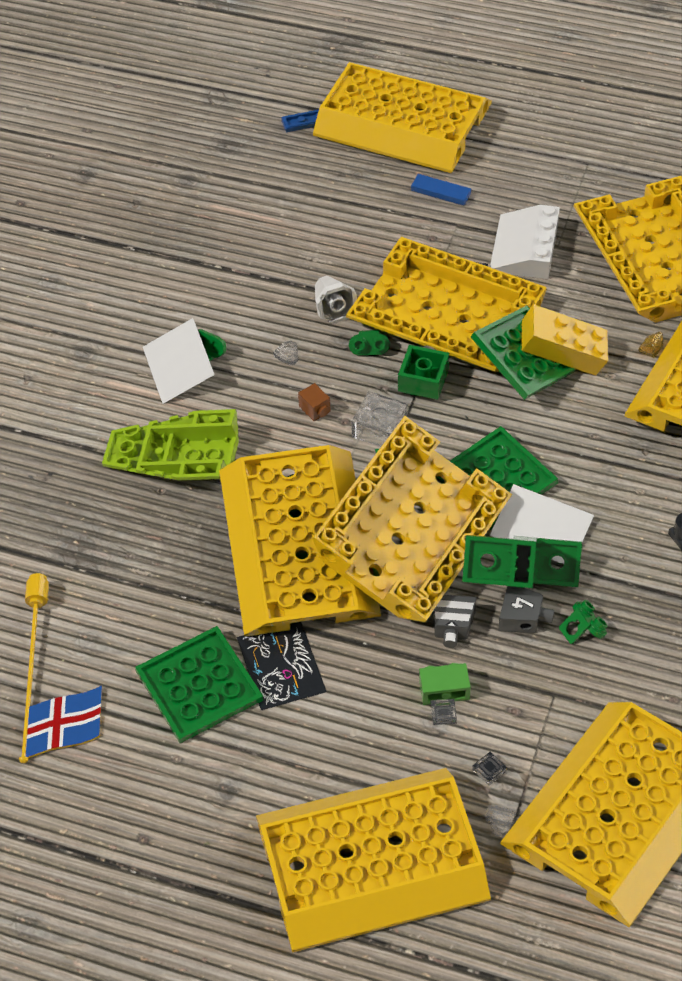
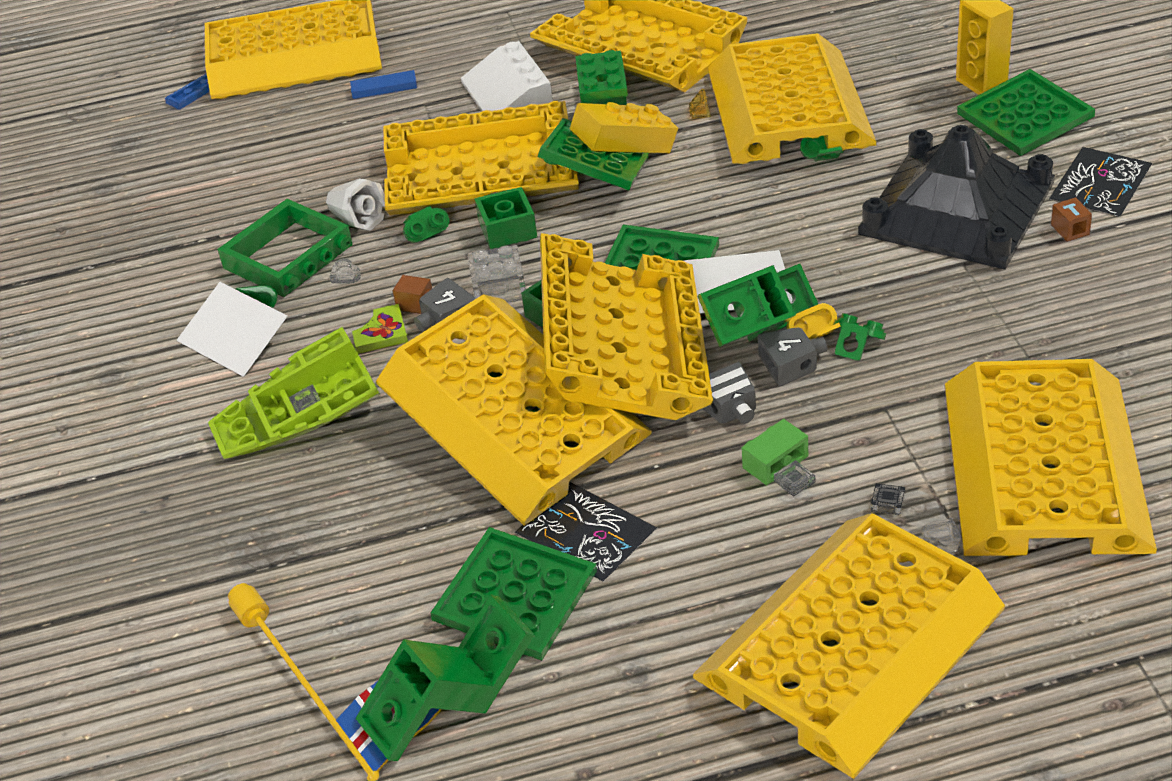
camera: 30 degrees left, 10 degrees down
(101, 722) = (444, 677): none -> green bracket
(180, 451) = (304, 398): none -> clear tile
(256, 286) = (236, 252): none -> green window
(274, 420) = (382, 330): none -> lime tile
(326, 427) = (440, 303): none -> dark grey torso
(561, 594) = (815, 321): none -> yellow bracket
(580, 289) = (601, 78): none -> green bracket

